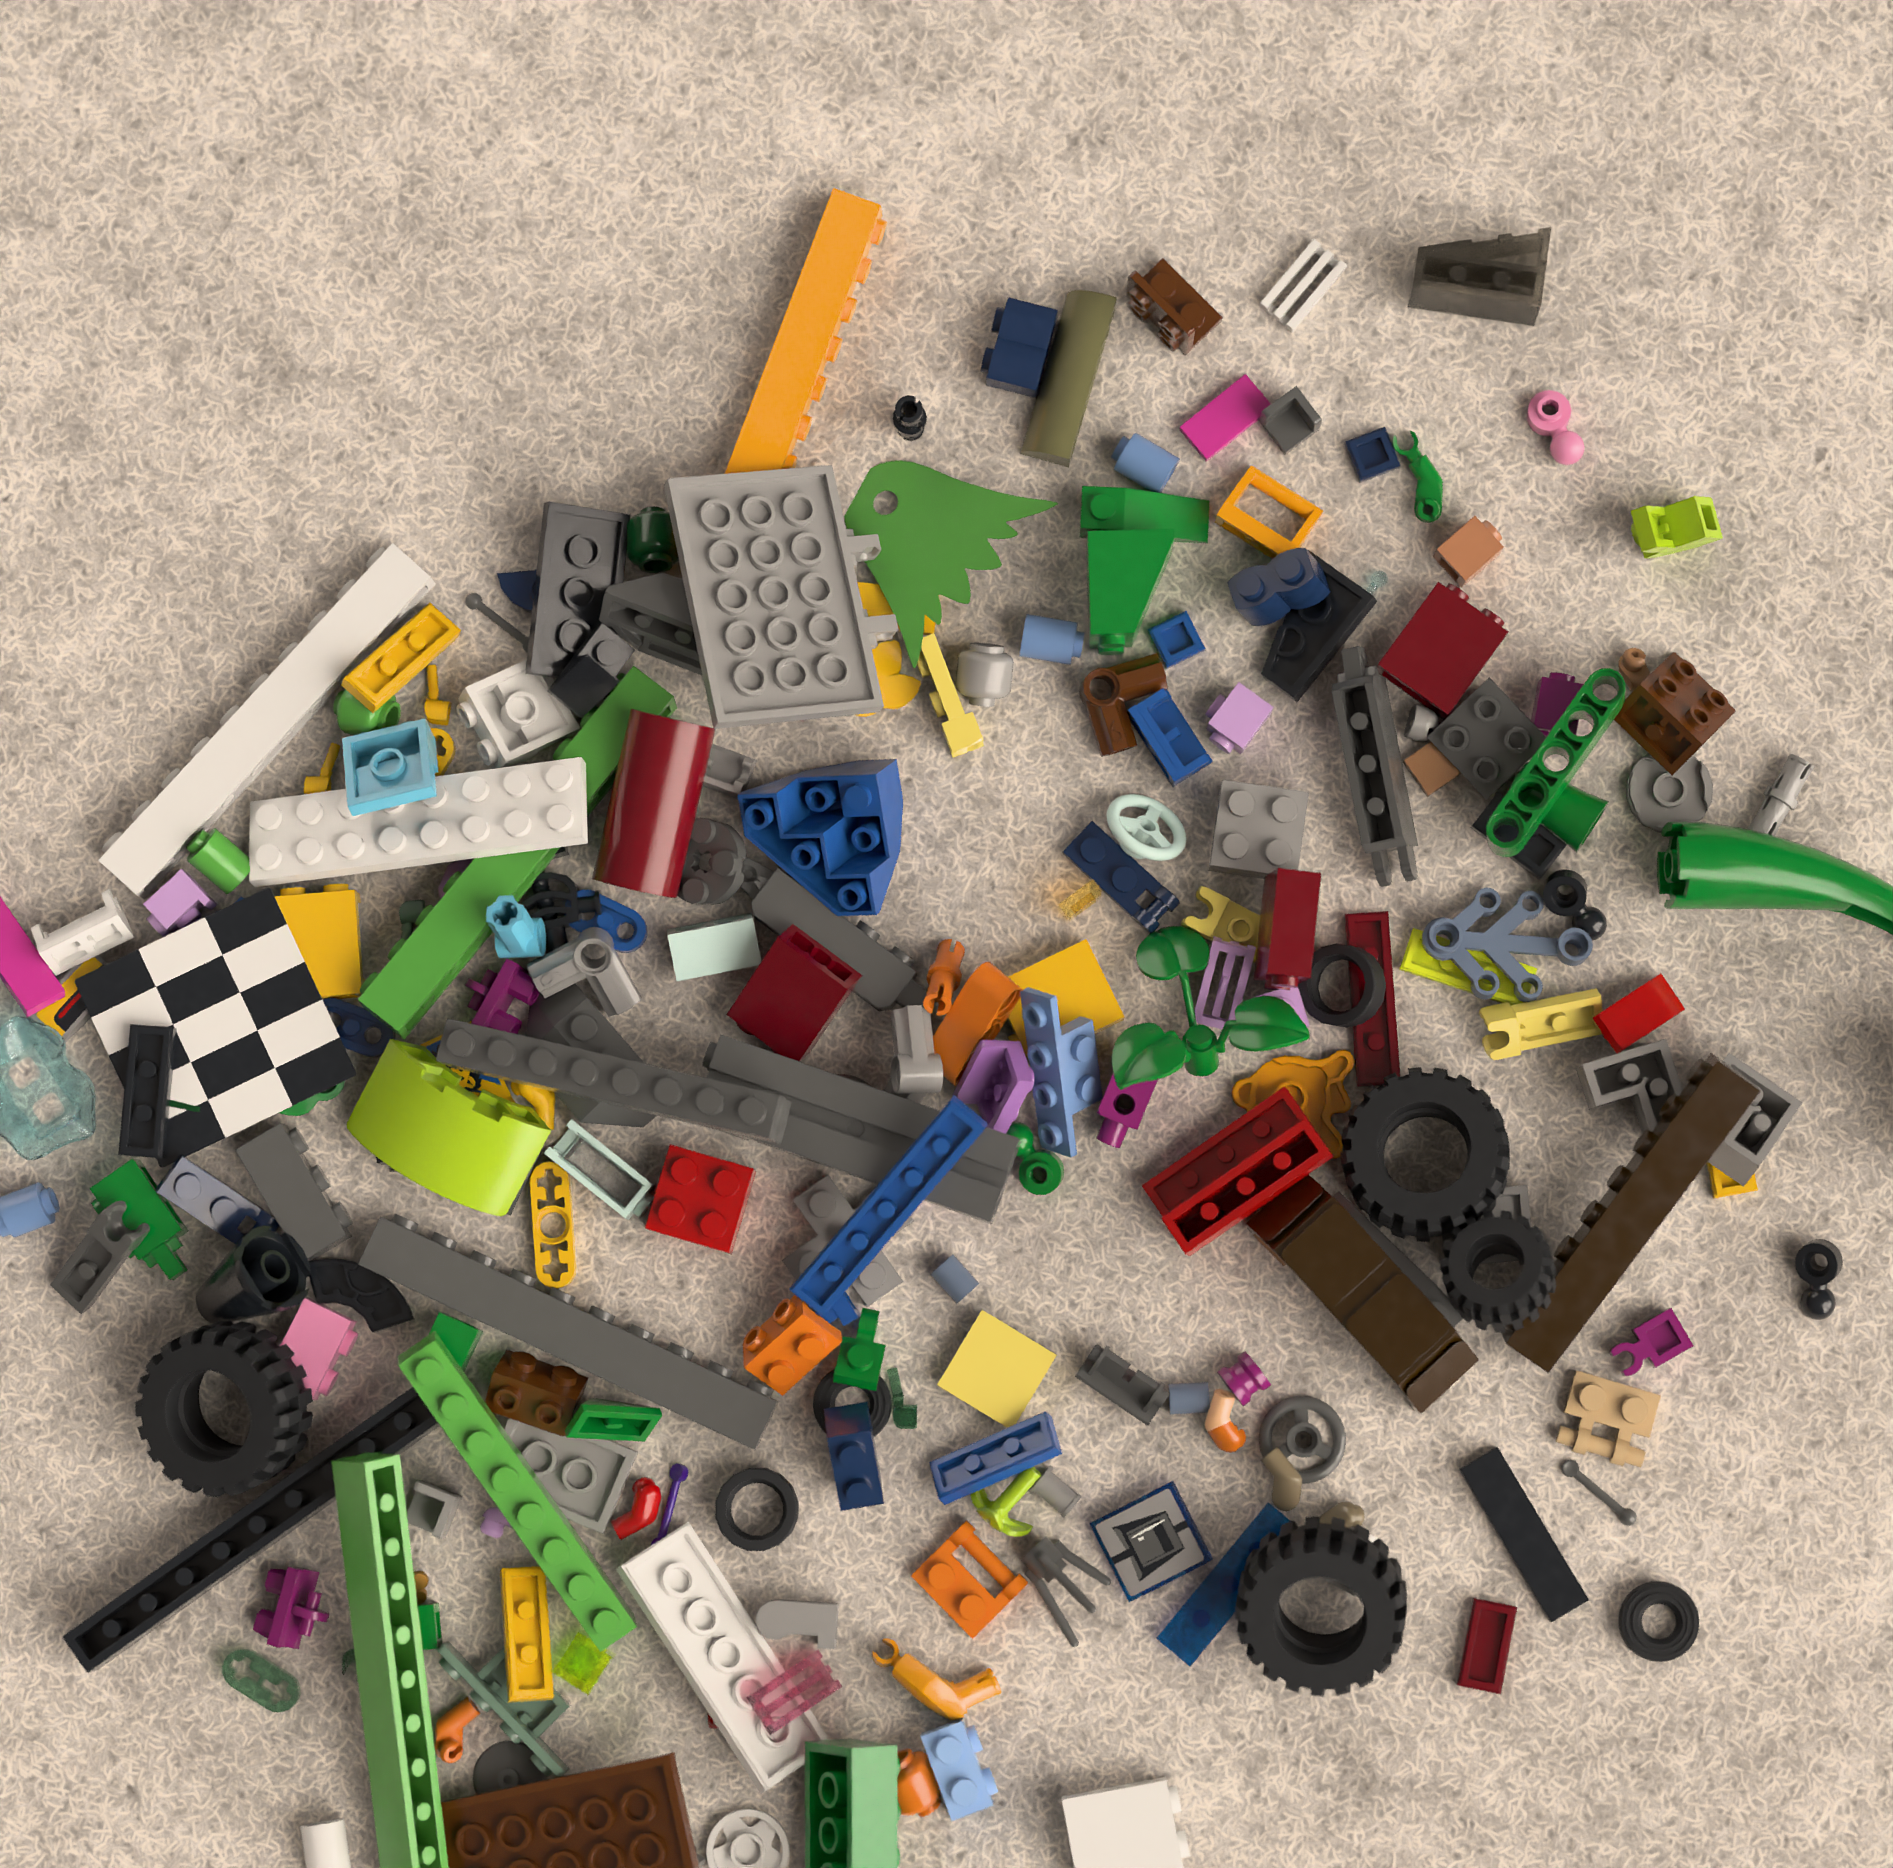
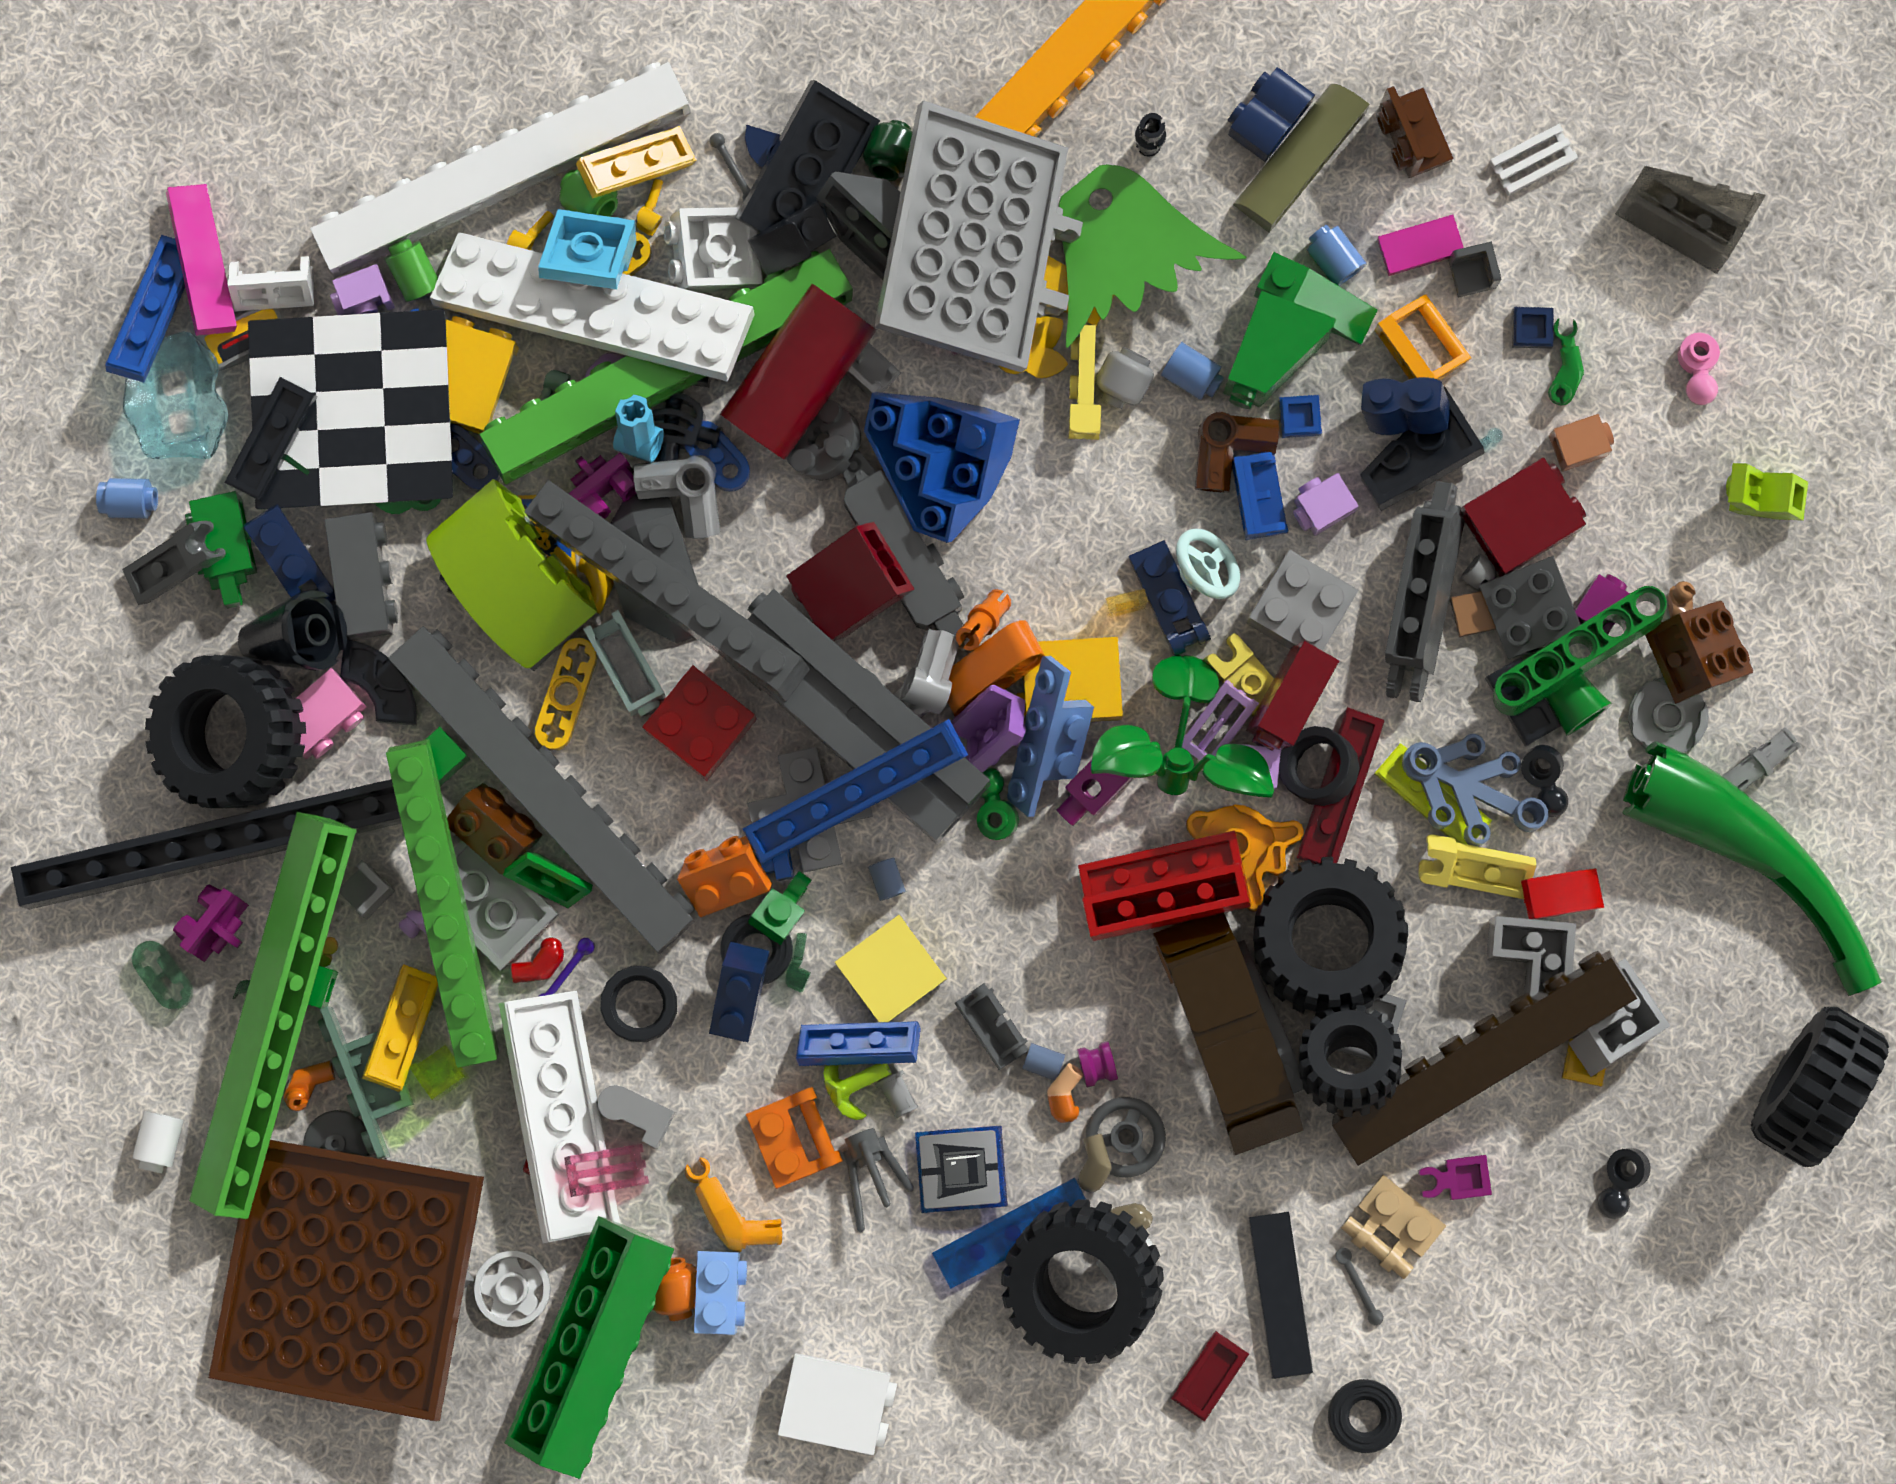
camera: 15 degrees right, 0 degrees up
(714, 946) = (799, 515): light aqua hinge -> none

